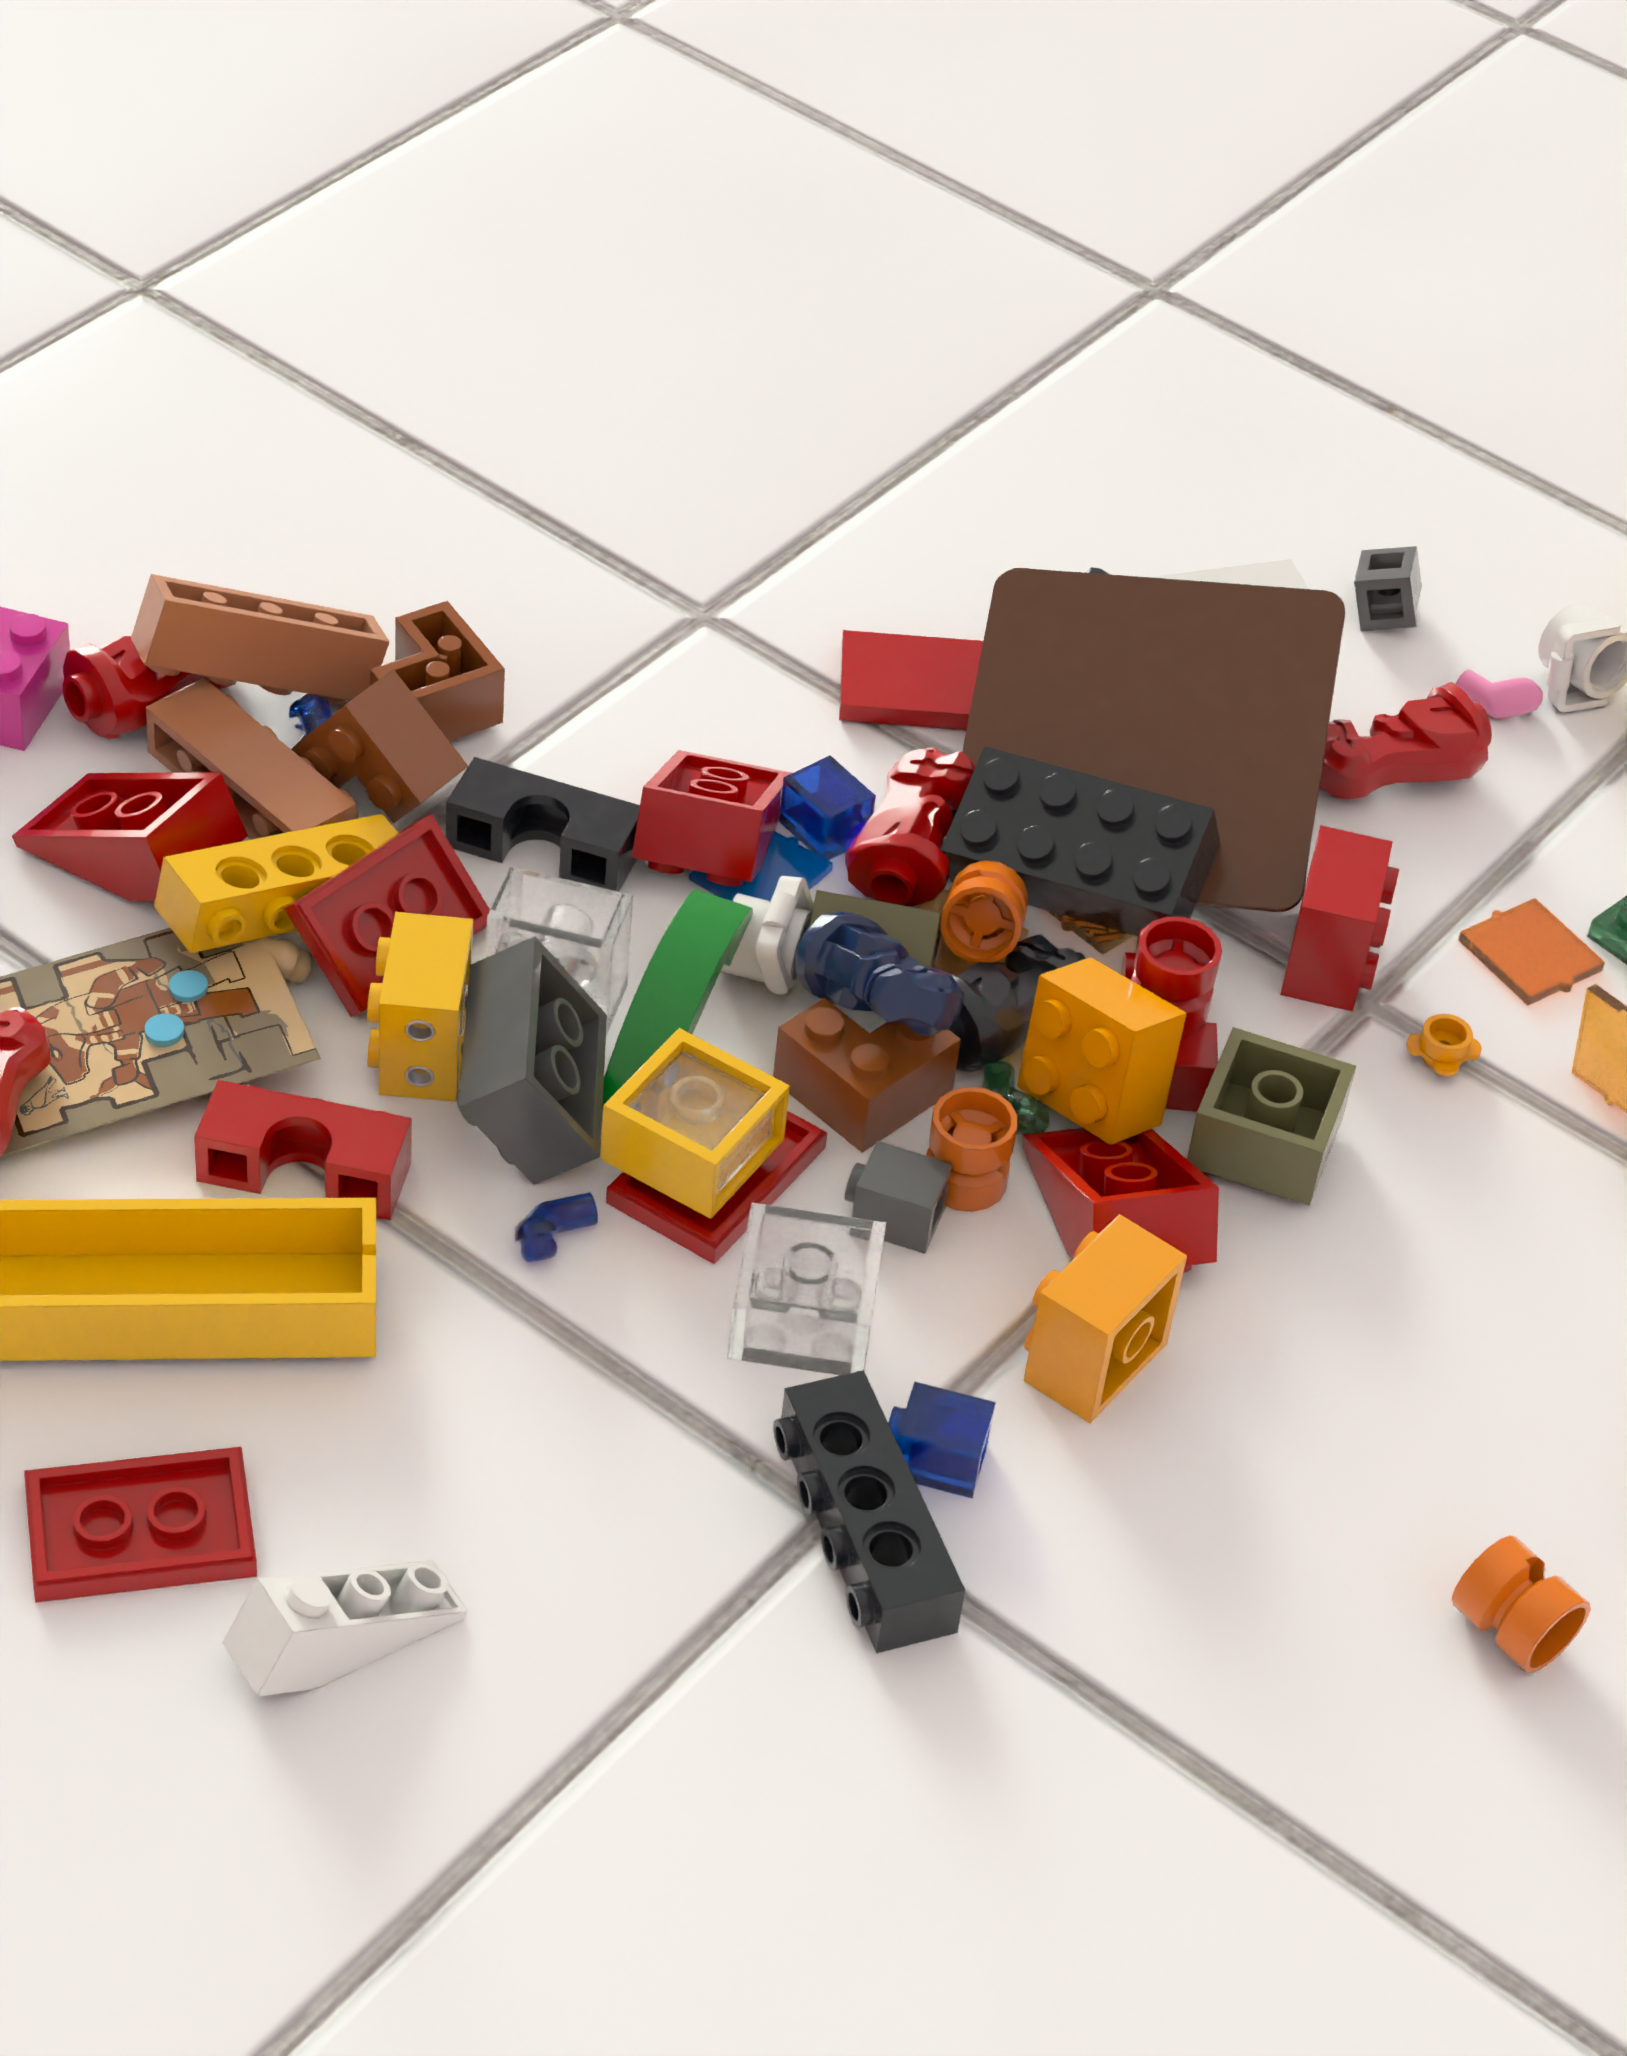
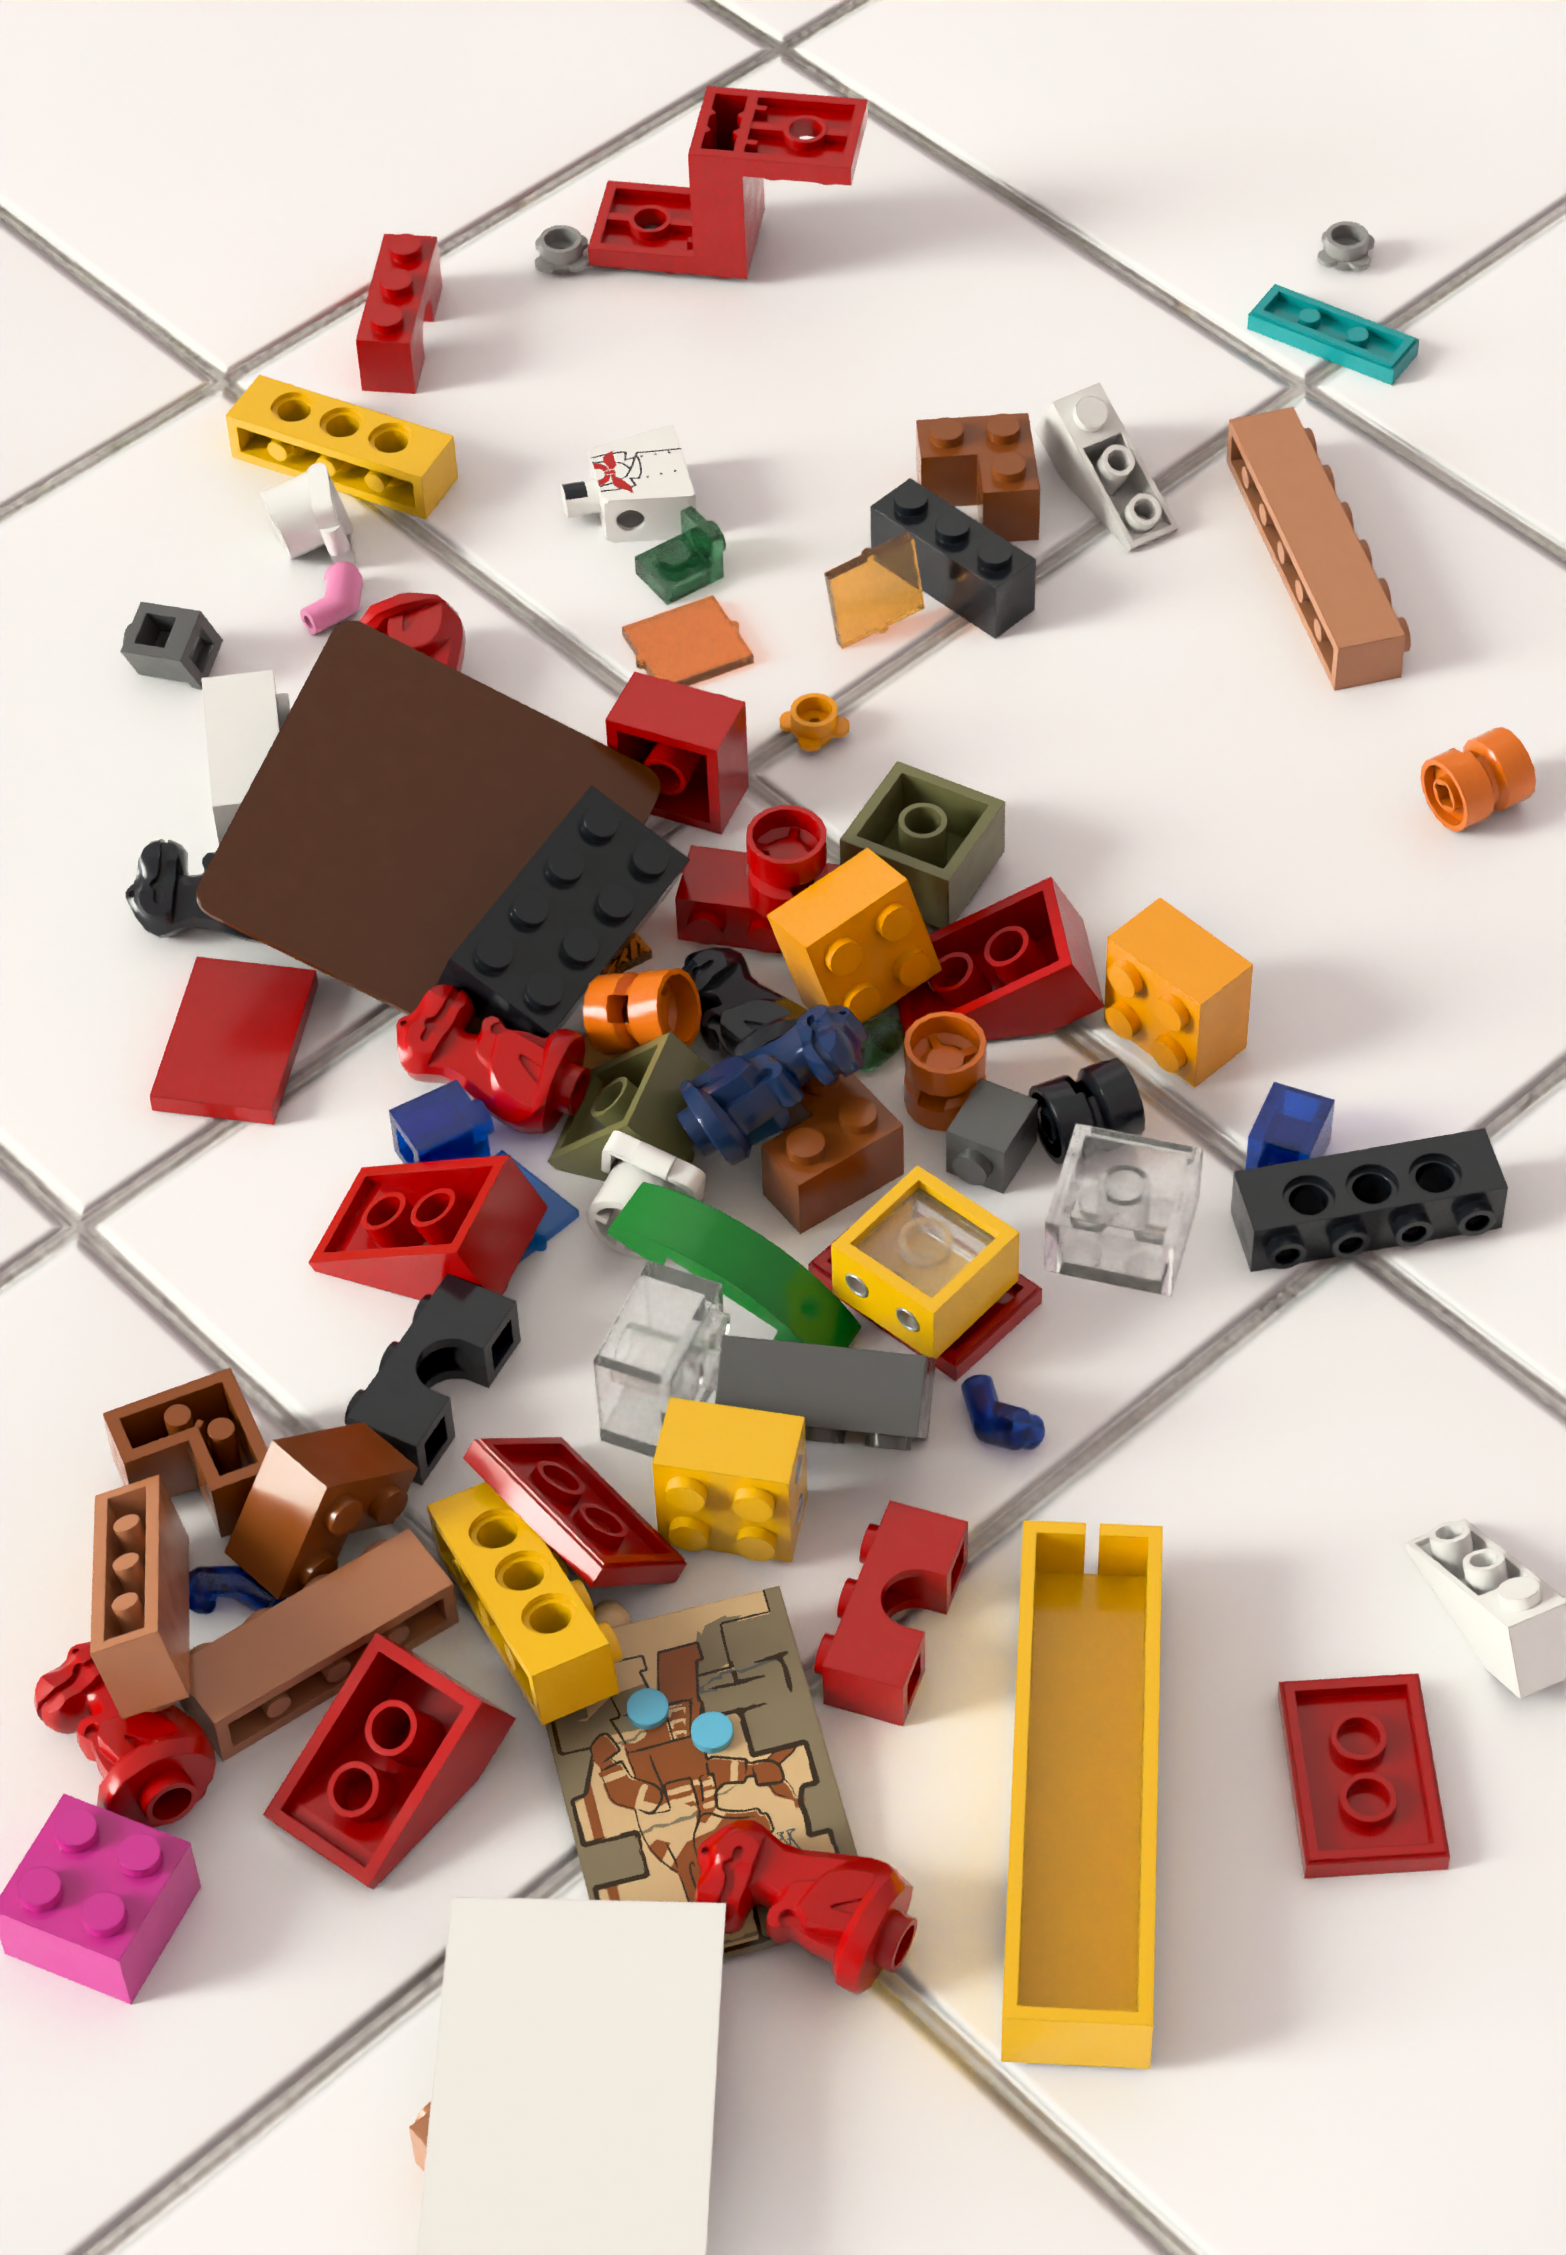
camera: 75 degrees left, 5 degrees up
(943, 1264) = (1099, 1098): none -> black wheel

